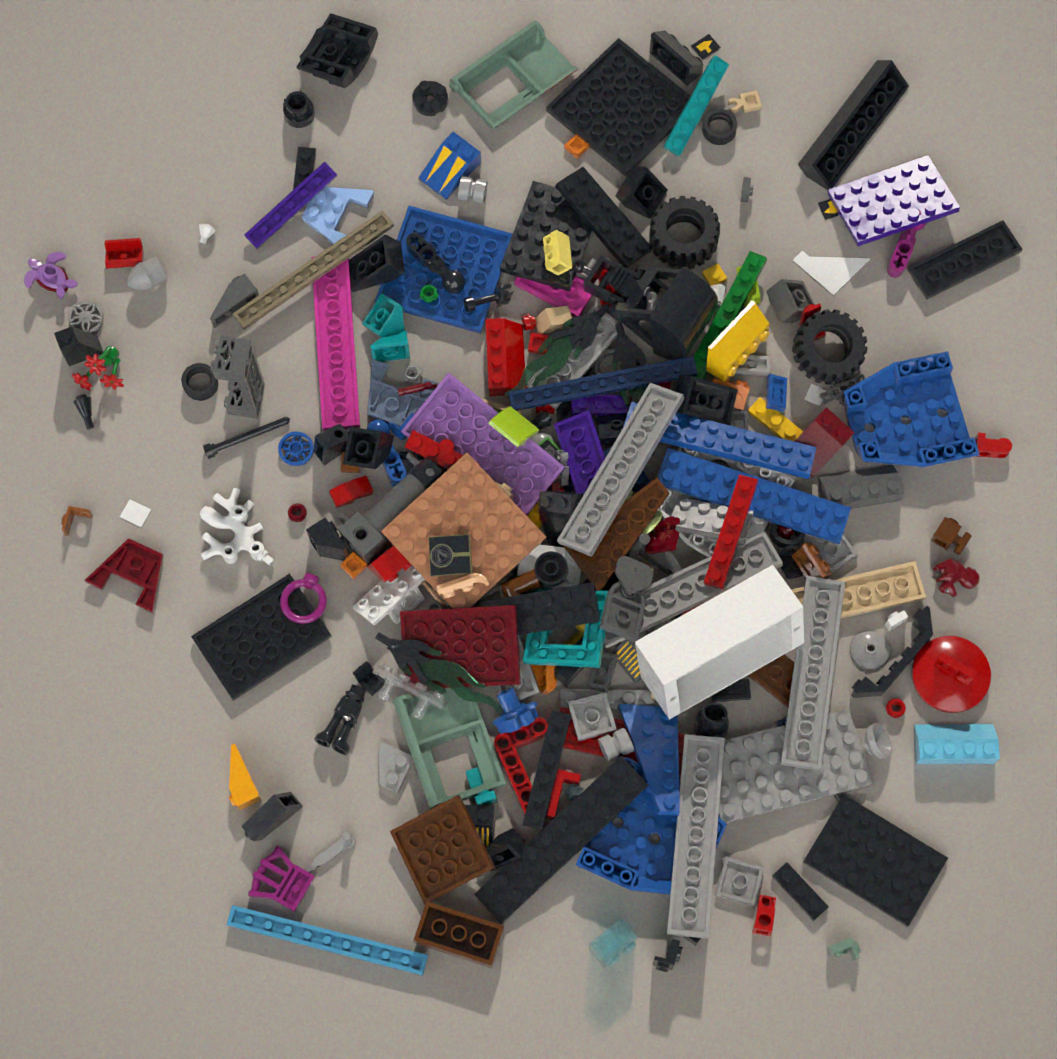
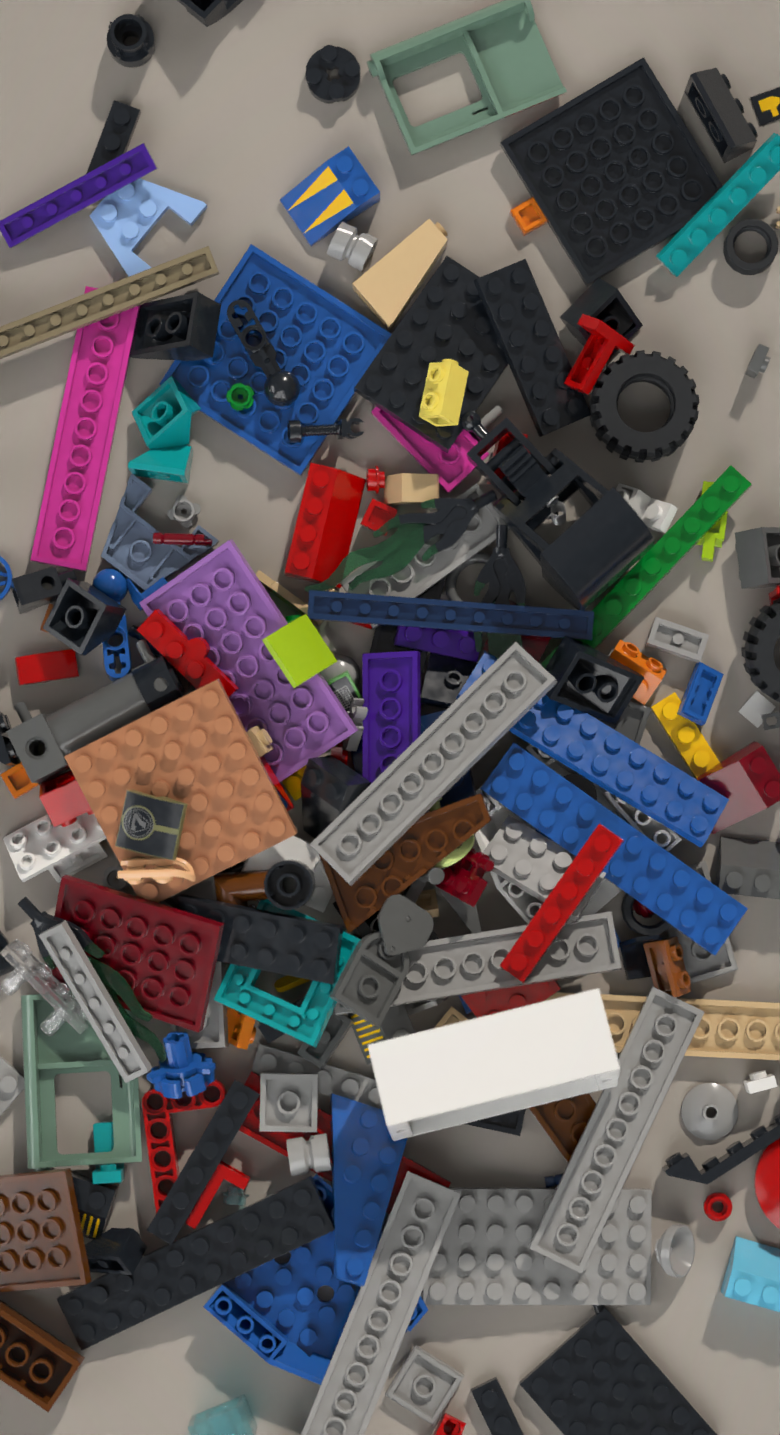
camera: 15 degrees right, 15 degrees up
(445, 684) = (95, 1001): none -> light grey plate
(505, 201) = (400, 273): none -> tan slope
(542, 420) = (346, 639): black cone -> none
(647, 200) = (595, 353): none -> red bracket
(712, 721) = (442, 1169): black piece -> none
(714, 275) = (668, 483): yellow plate -> none
(737, 342) = (666, 607): yellow slope -> none

